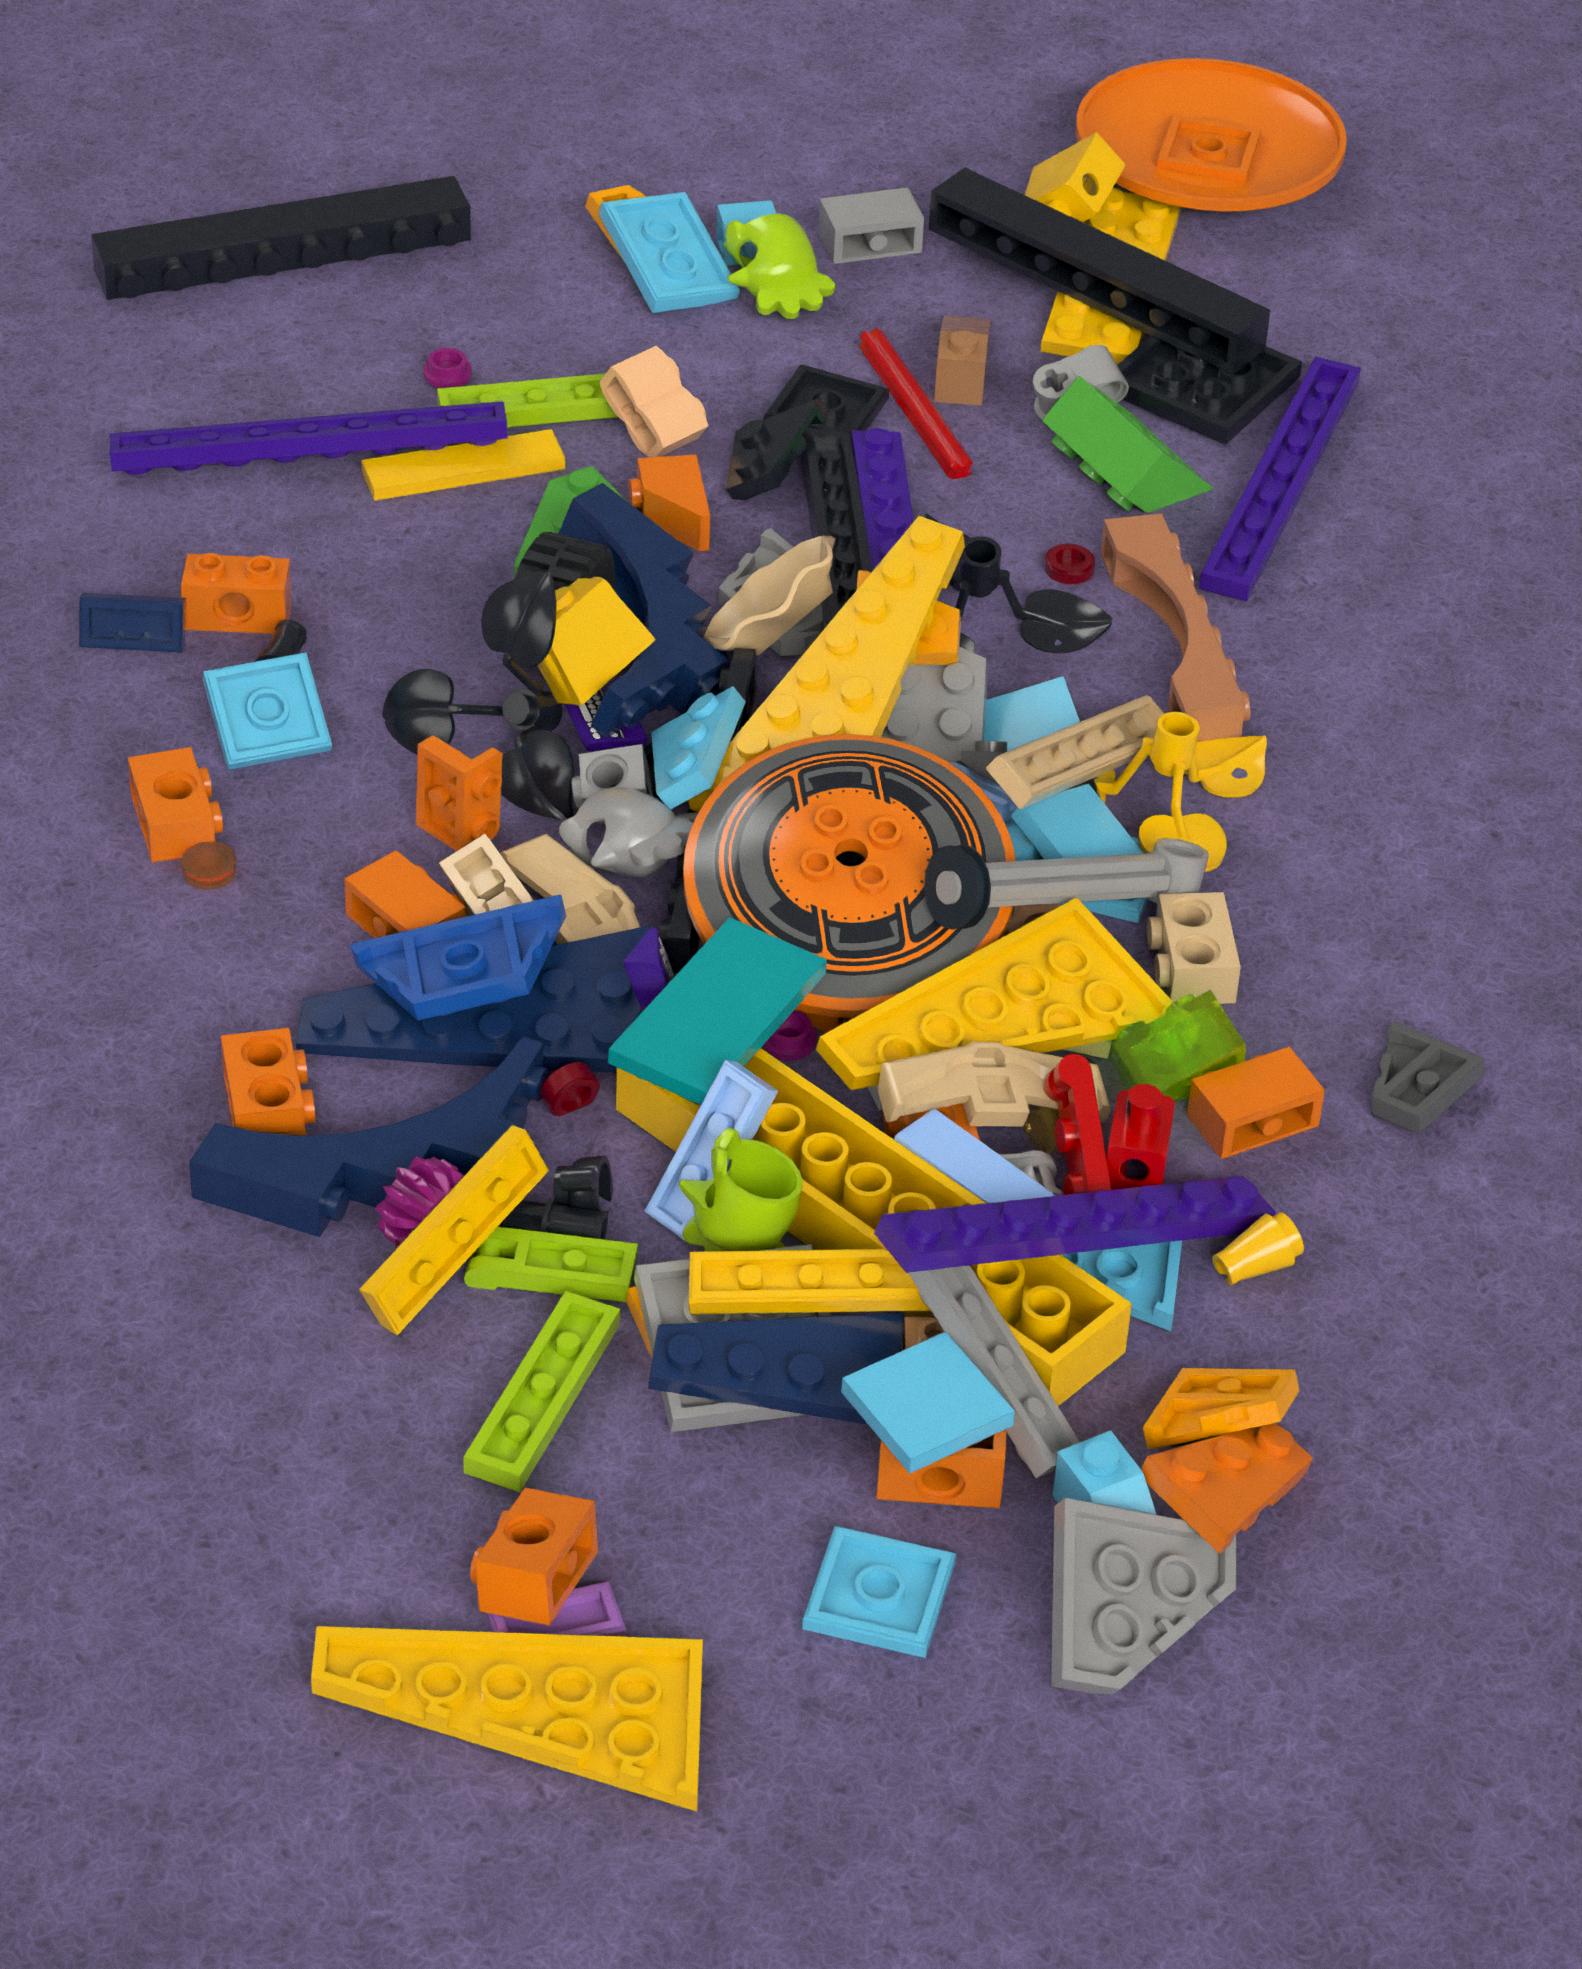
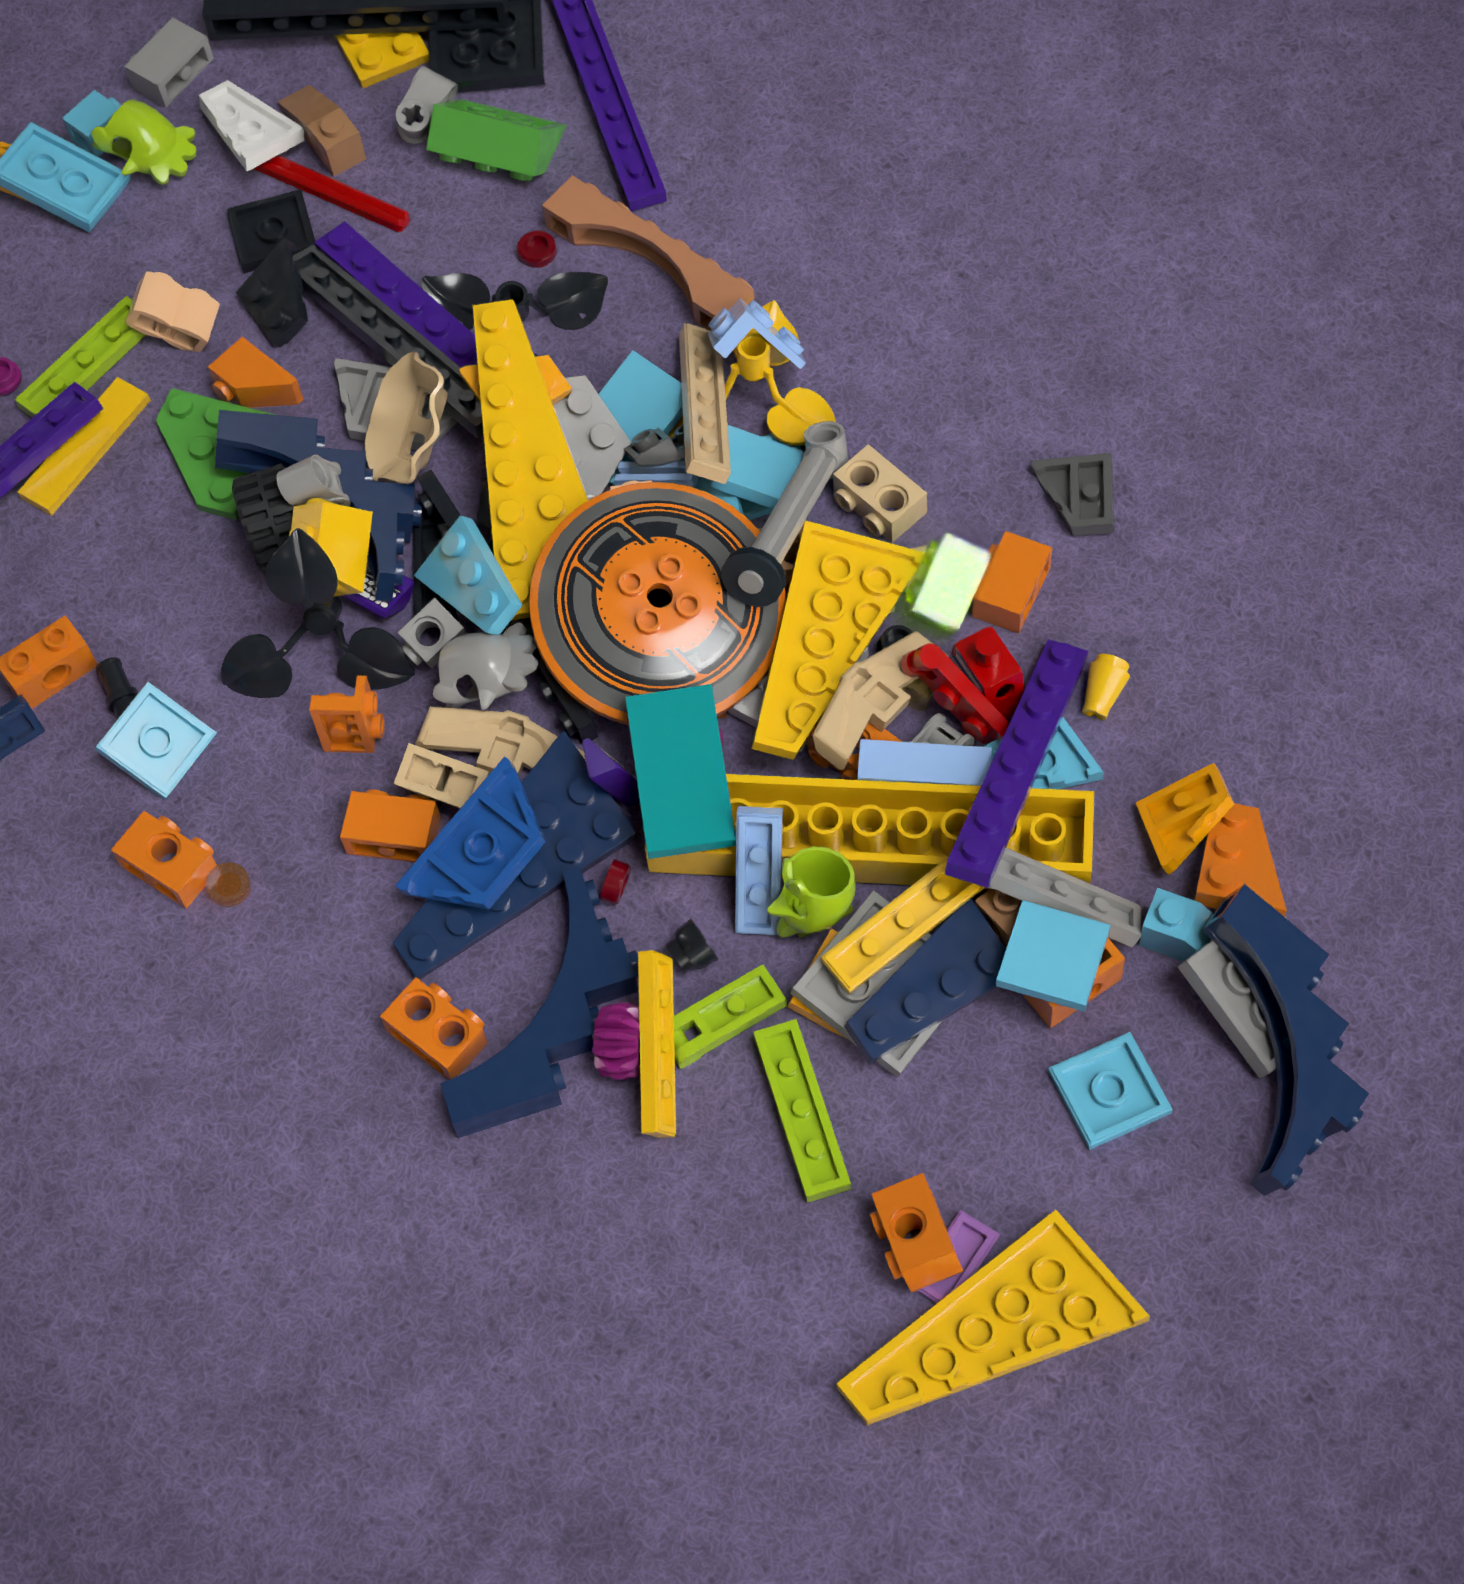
camera: 30 degrees left, 20 degrees up
(557, 1219) = (701, 982): black axle -> none
(623, 565) = (312, 479): none -> light grey piece
(892, 311) = (249, 125): none -> white wing
(1165, 1588) = (1304, 1031): none -> dark blue arch
(1212, 719) = (733, 325): none -> light blue bracket

